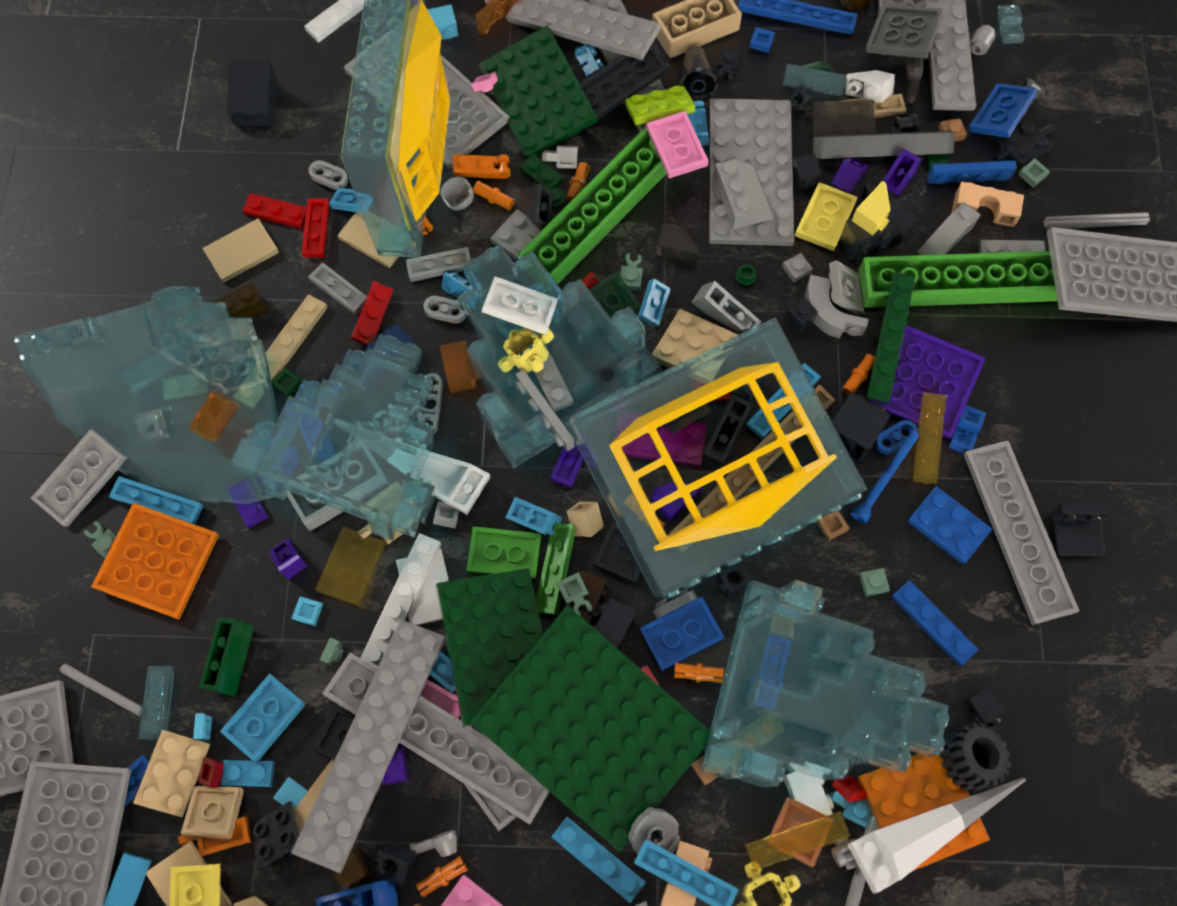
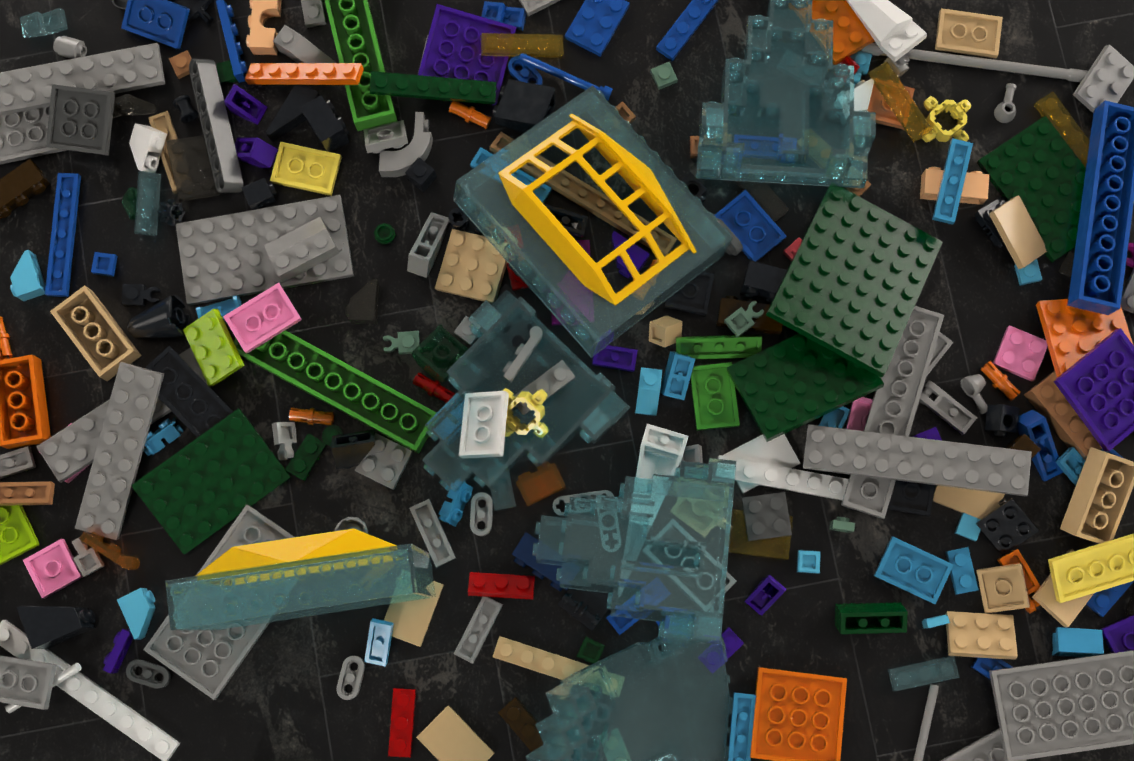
camera: 100 degrees left, 10 degrees up
(211, 772) = (971, 601): dark red plate -> none
(214, 416) = (649, 703): clear orange brick -> none
(315, 228) = (415, 672): red plate -> none
(363, 575) = (766, 516): none -> dark grey plate
(426, 804) = (947, 408): none -> light grey plate
(458, 331) = (503, 493): none -> clear light blue plate
(480, 166) = (310, 516): orange plate -> none
(484, 82) = (212, 537): bright pink plate -> none
(493, 195) = (343, 497): orange pin -> none
(526, 487) = (648, 391): none -> medium azure slope
(538, 403) = (587, 376): light grey plate -> none
(586, 363) = (523, 352): none -> light grey plate
(598, 859) = (951, 258): dark azure plate -> none
(650, 821) = (914, 218): light grey plate -> none
(654, 302) = (433, 313): dark azure plate -> none
(699, 672) = (782, 204): orange pin -> none
(797, 267) = (366, 187): light grey plate -> none
(874, 210) = (310, 114): light yellow slope -> none
(924, 224) = (304, 73): none -> orange plate

